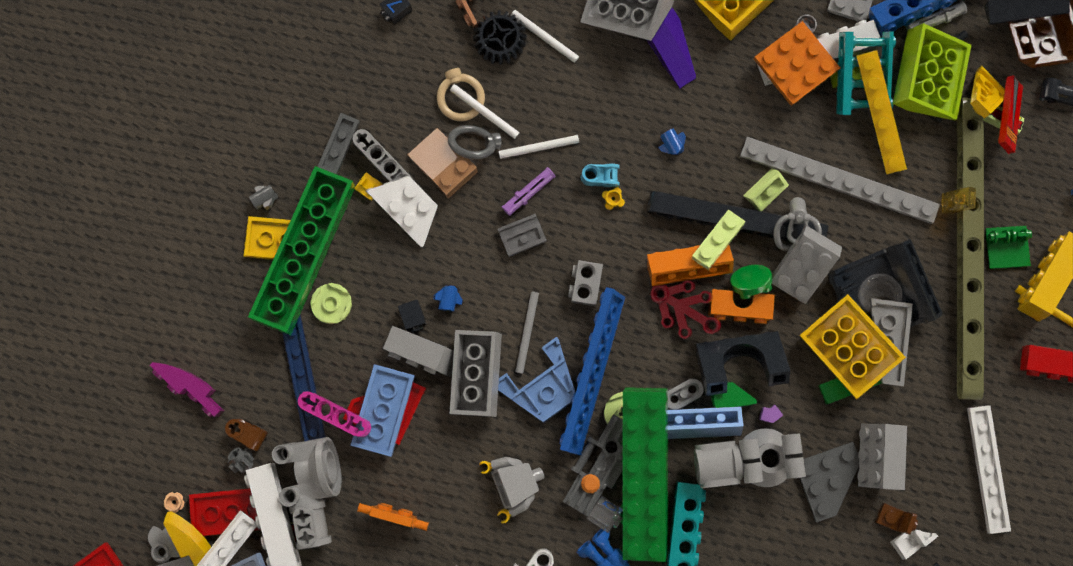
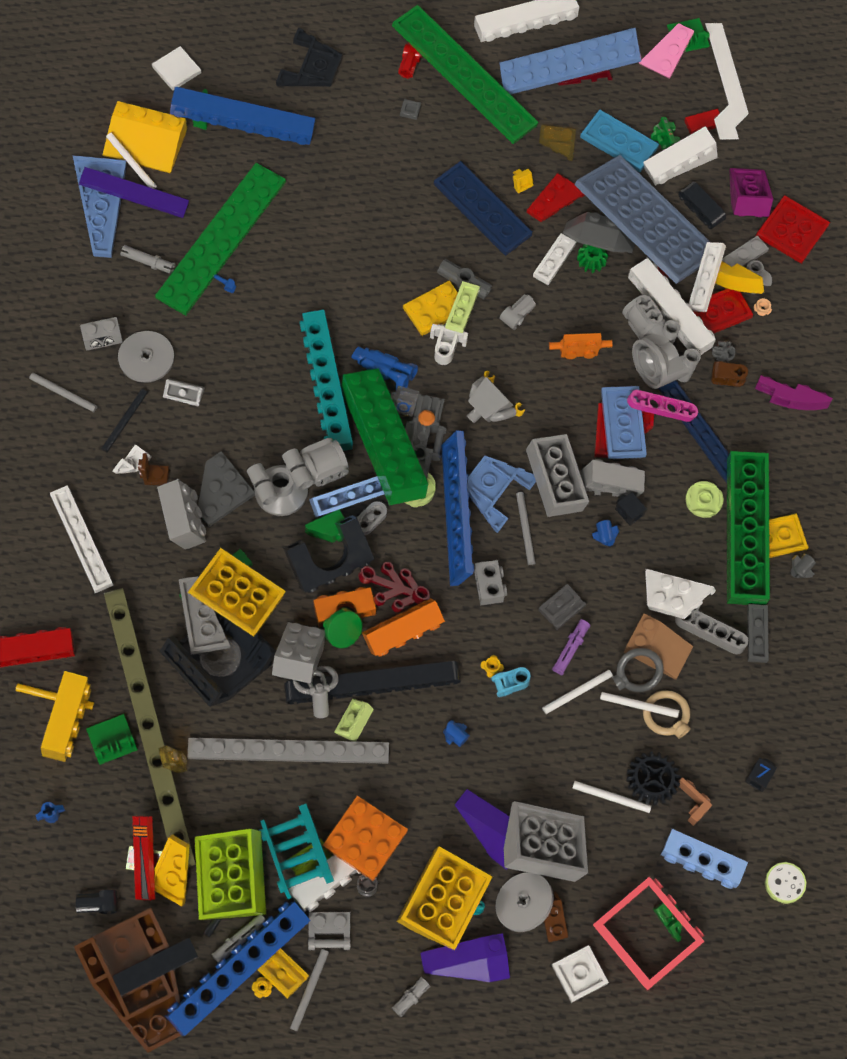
camera: 155 degrees right, 15 degrees down
(365, 183) = (715, 607): yellow tile -> none
(718, 240) = (385, 649): yellowish green plate -> none
(770, 414) = (288, 525): medium lavender piece -> none
(881, 112) = (270, 818): yellow plate -> none

